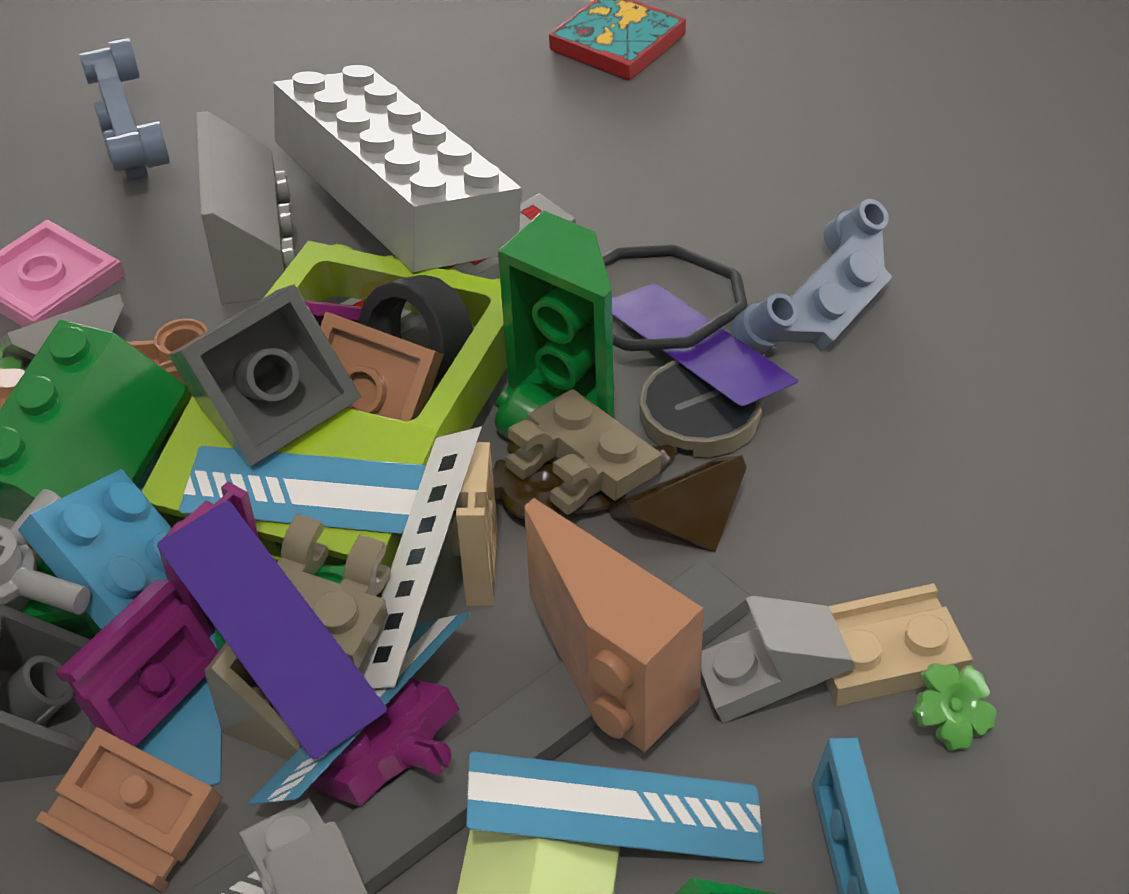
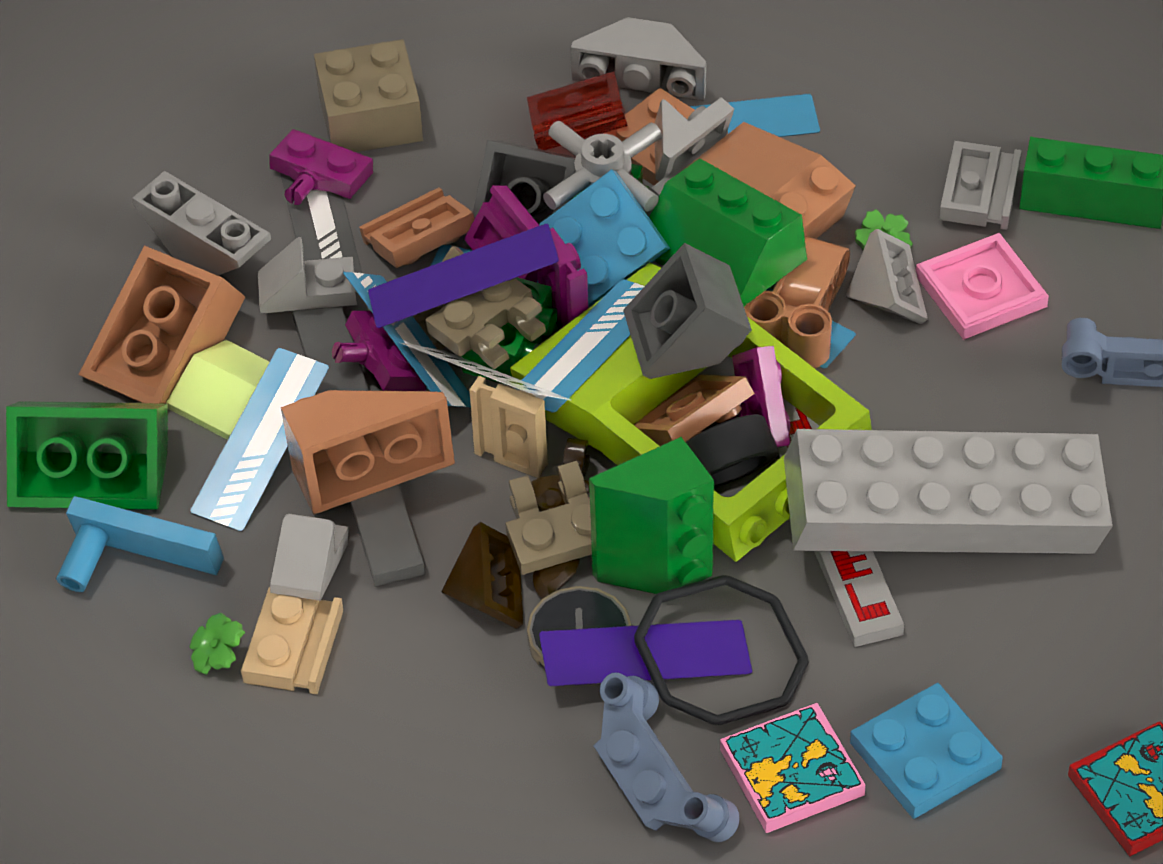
camera: 115 degrees right, 5 degrees up
(242, 210) = (960, 385): light grey slope -> none
(667, 150) = (926, 750): none -> dark azure plate
(749, 217) = (792, 767): none -> tile

